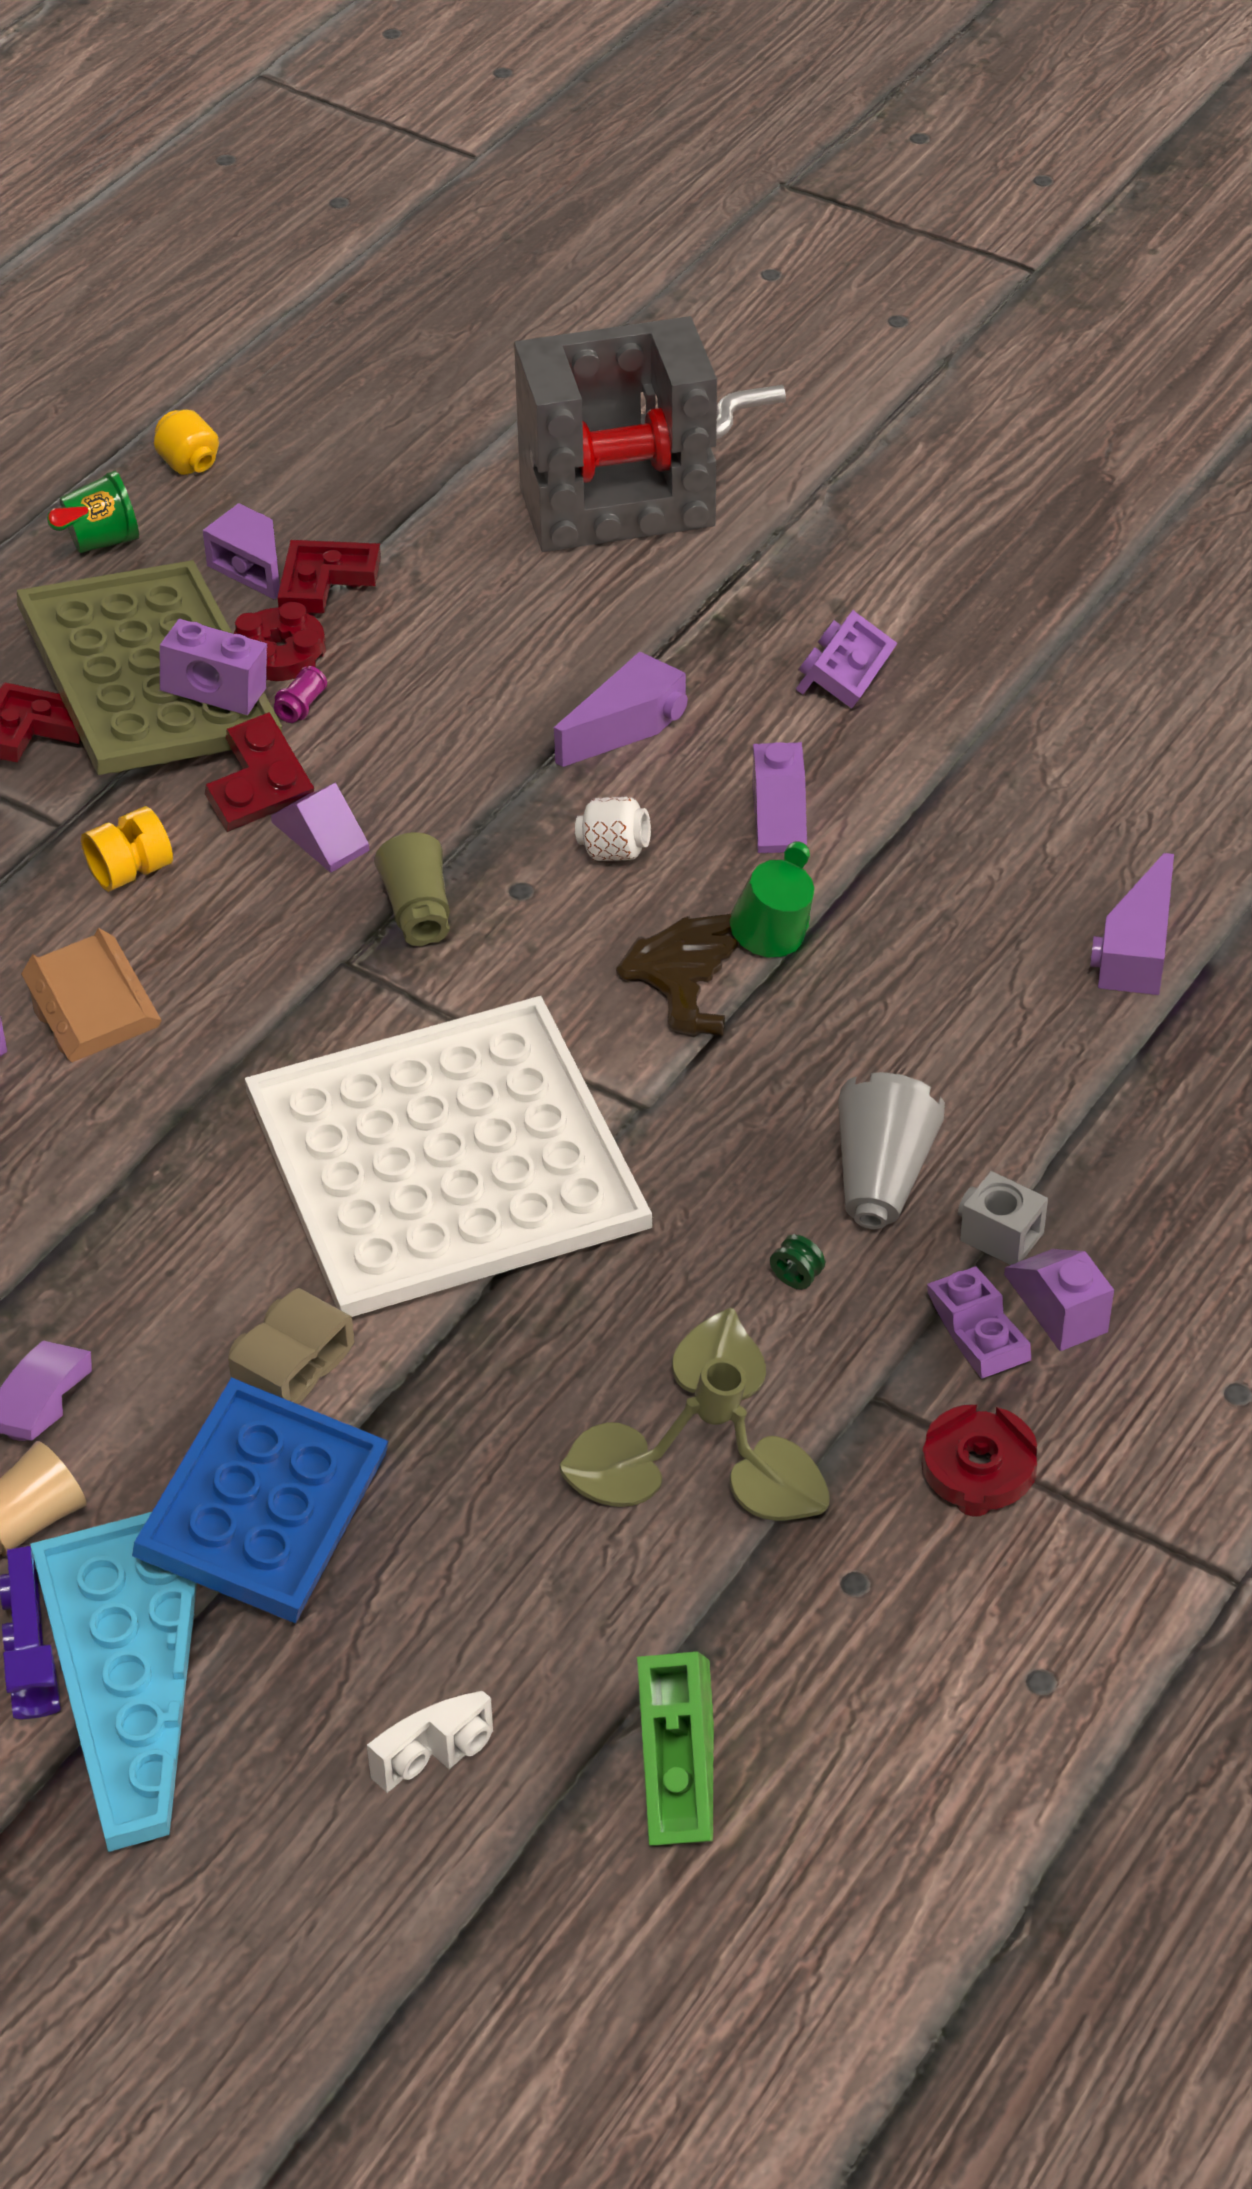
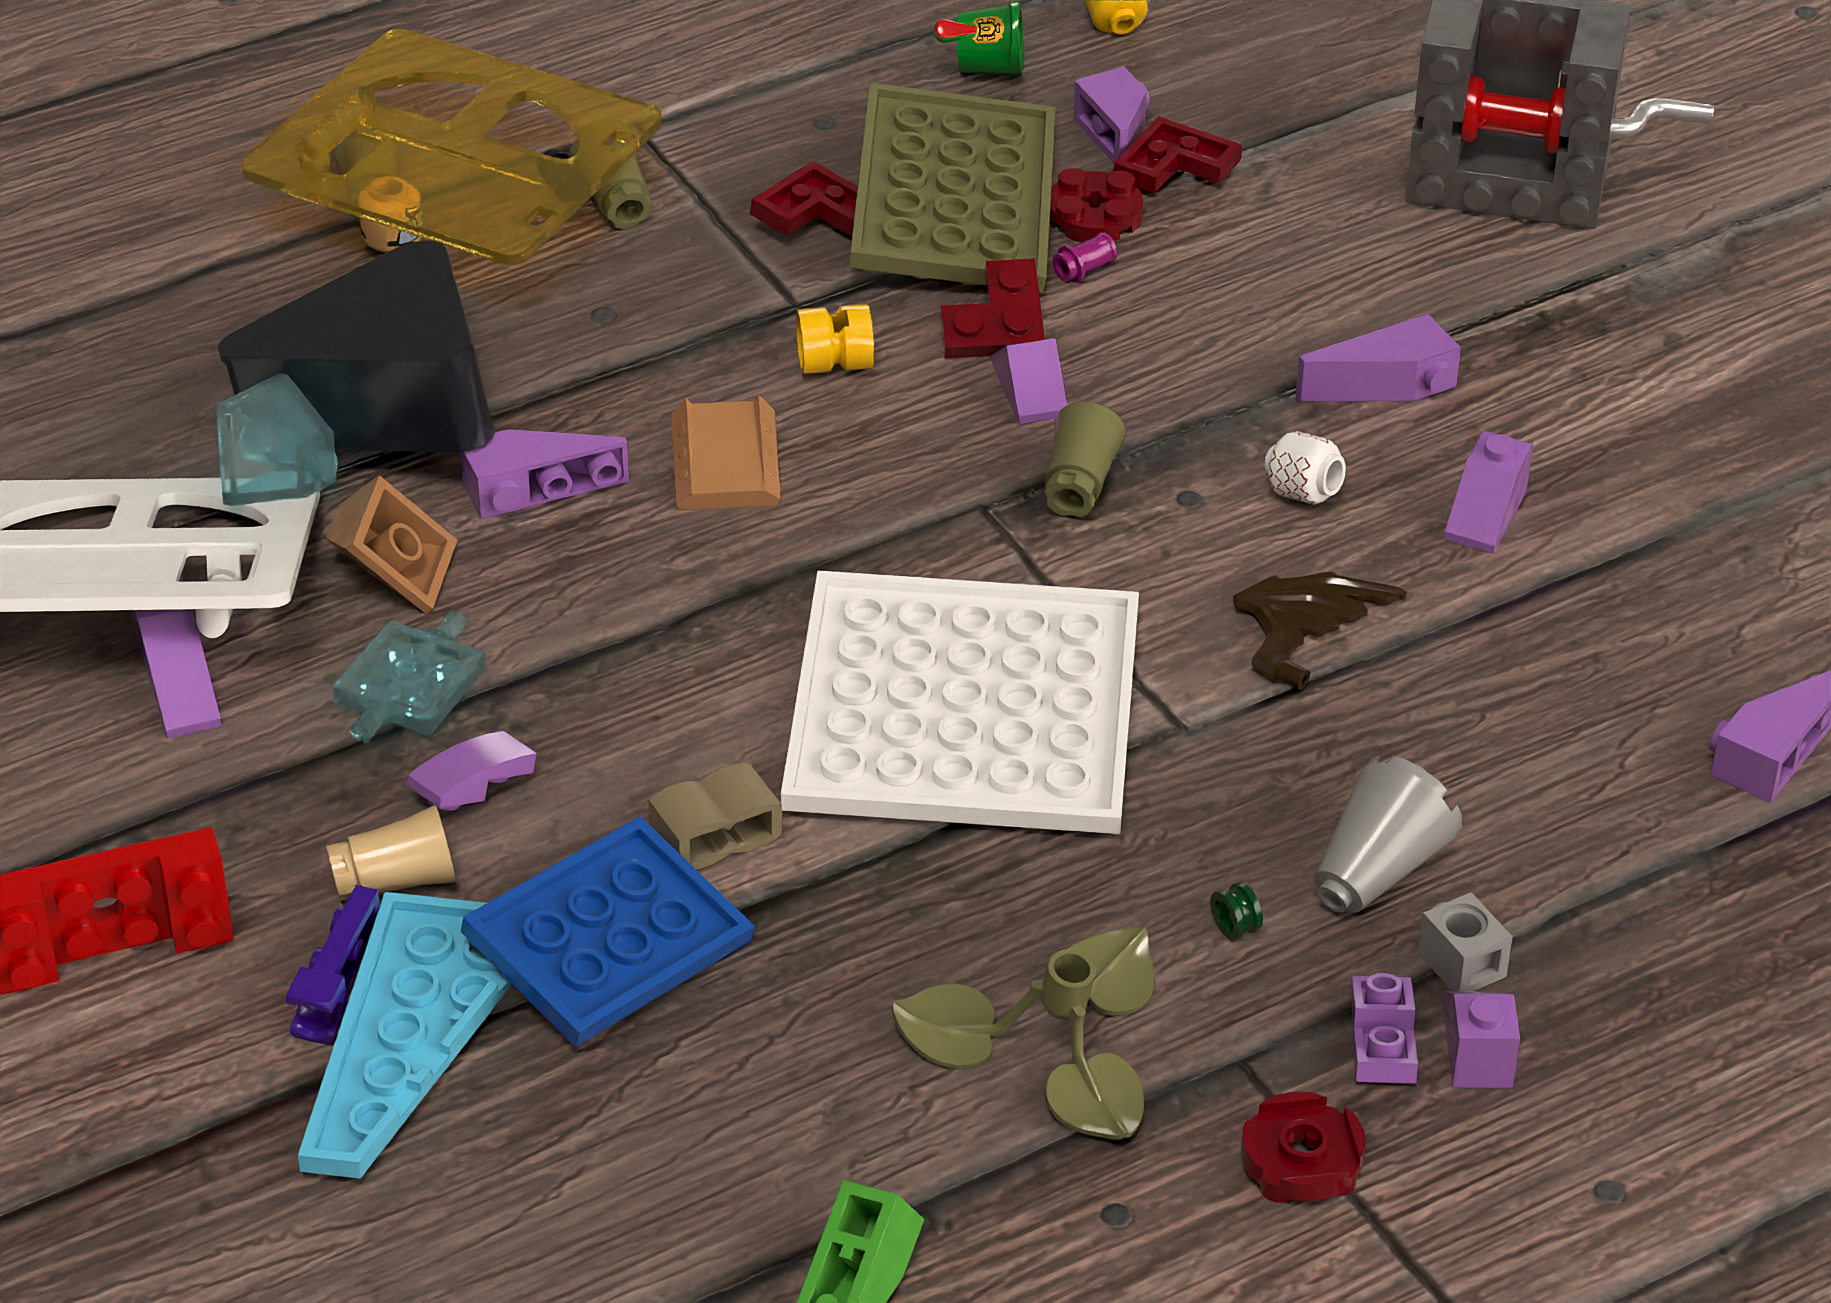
camera: 25 degrees right, 5 degrees down
(213, 666) = (1004, 201): medium lavender brick -> none
(442, 1730) = (649, 1183): white slope -> none
(775, 905) = (1416, 585): green hat -> none
(849, 658) = (1643, 388): medium lavender bracket -> none

